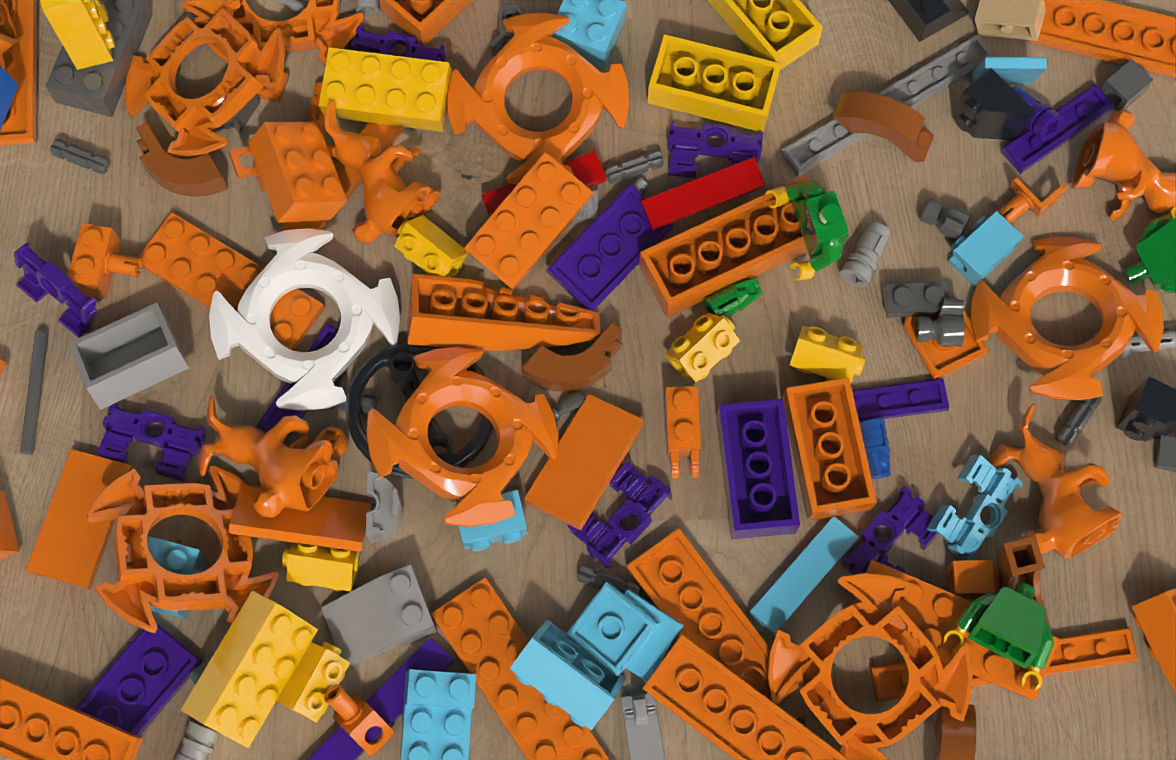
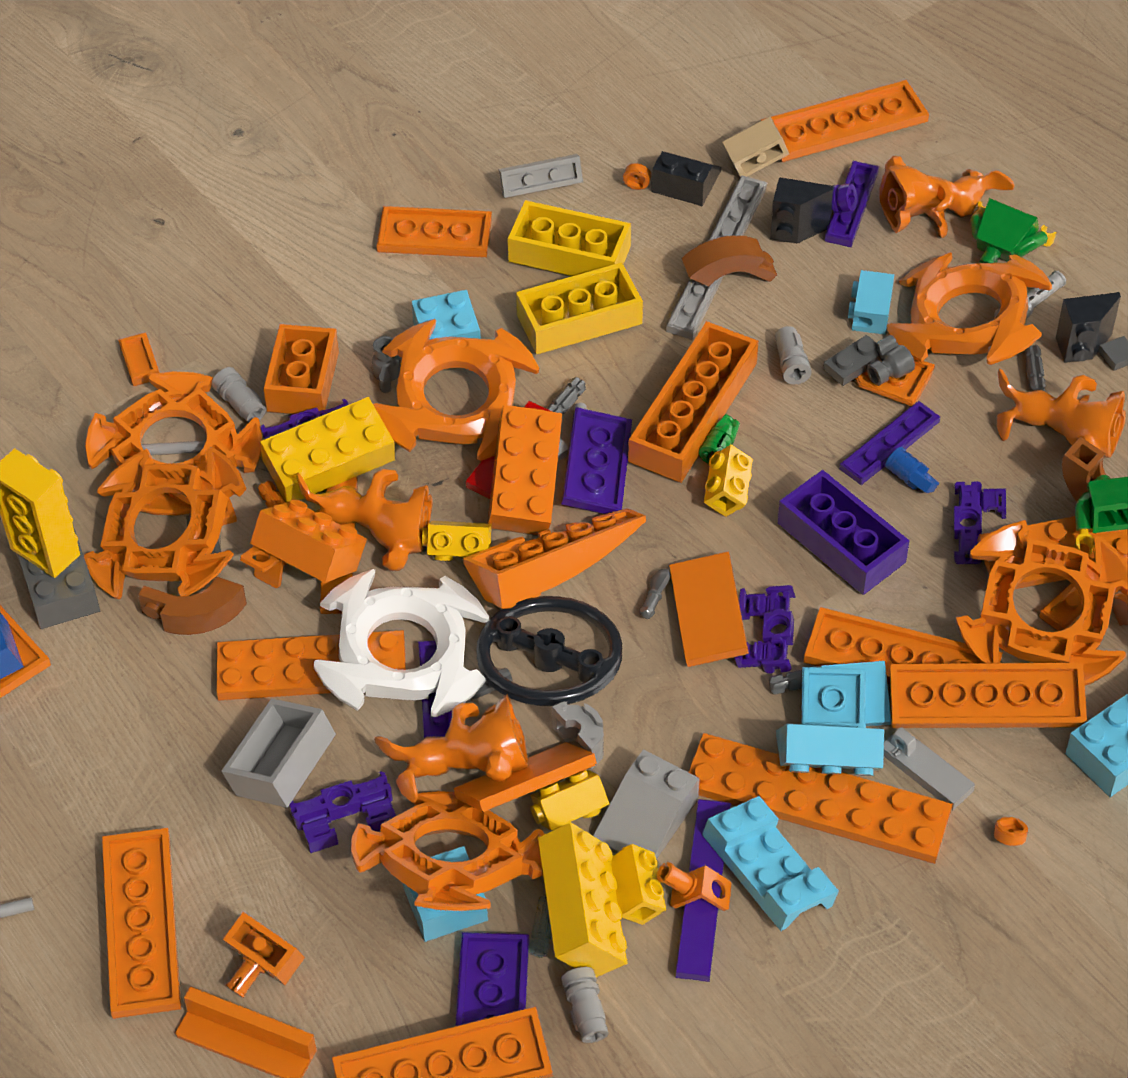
camera: 35 degrees left, 20 degrees down
(34, 392) = (211, 840): dark grey bar -> none
(46, 278) = (198, 740): dark purple piece -> none
(67, 543) = (335, 904): orange tile -> none
(80, 156) = (99, 651): dark grey axle -> none
(97, 260) = (187, 709): orange brick -> none
(453, 386) = (636, 610): orange piece -> none
(508, 530) = (673, 691): medium azure brick -> none
(575, 371) = (644, 557): dark orange arch -> none
(682, 428) = (762, 541): orange hinge -> none
(689, 139) = (596, 358): dark purple piece -> none
(702, 194) = (636, 382): red tile -> none
(803, 575) = (937, 584): medium azure tile -> none
(819, 222) = (748, 336): green torso -> none
(827, 354) = (832, 429): yellow brick -> none
(828, 449) = (886, 484): orange brick -> none
(950, 220) = (832, 299): dark grey piece -> none
(970, 531) = (1025, 480): medium azure piece -> none
(972, 578) = (1055, 505): orange brick -> none
(1013, 69) = (797, 169): medium azure tile -> none
(1027, 200) = (873, 255): orange bracket -> none
(1127, 85) = (876, 147): dark grey brick -> none

